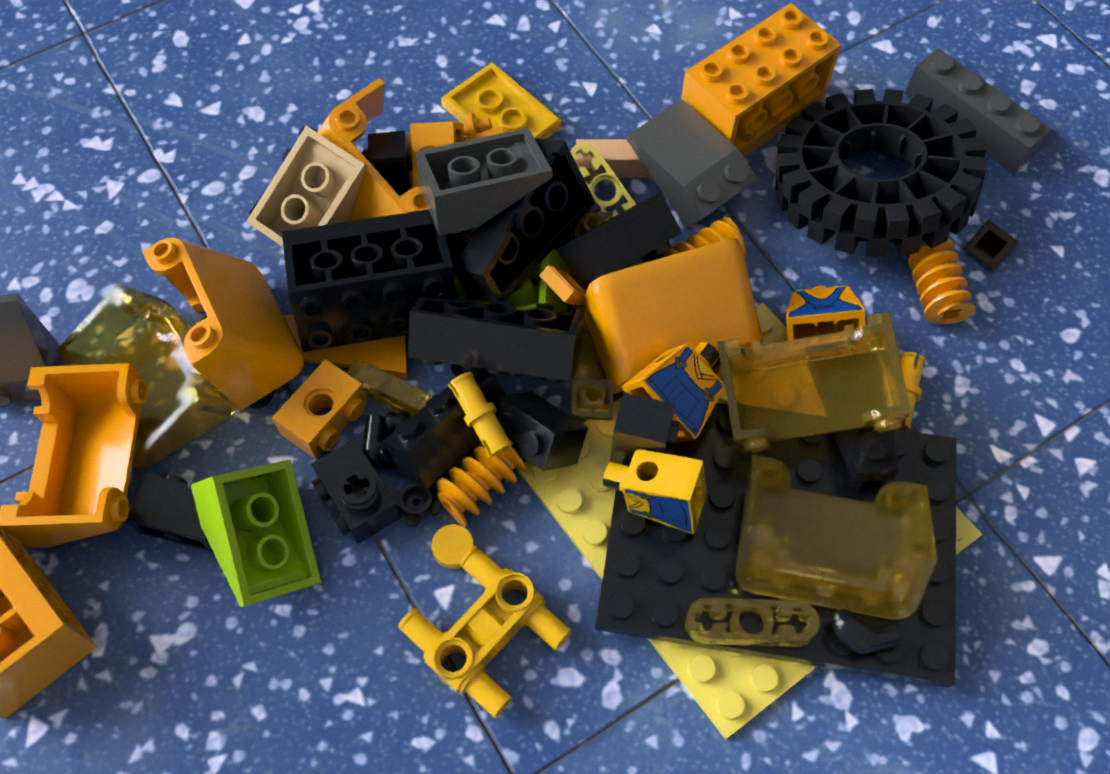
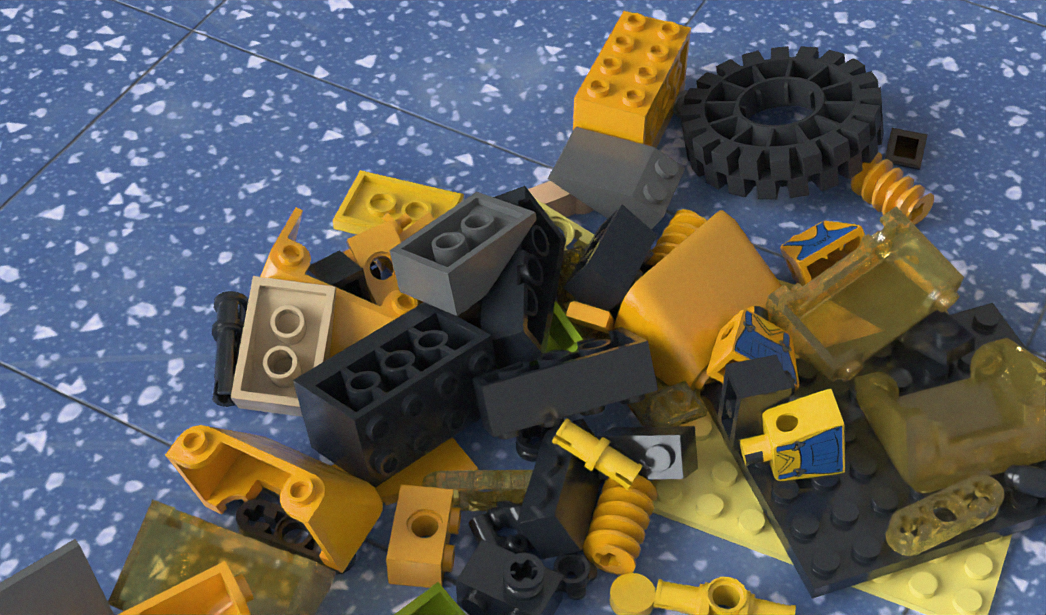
camera: 30 degrees left, 15 degrees down
(1008, 129) = (781, 30): dark grey slope -> none

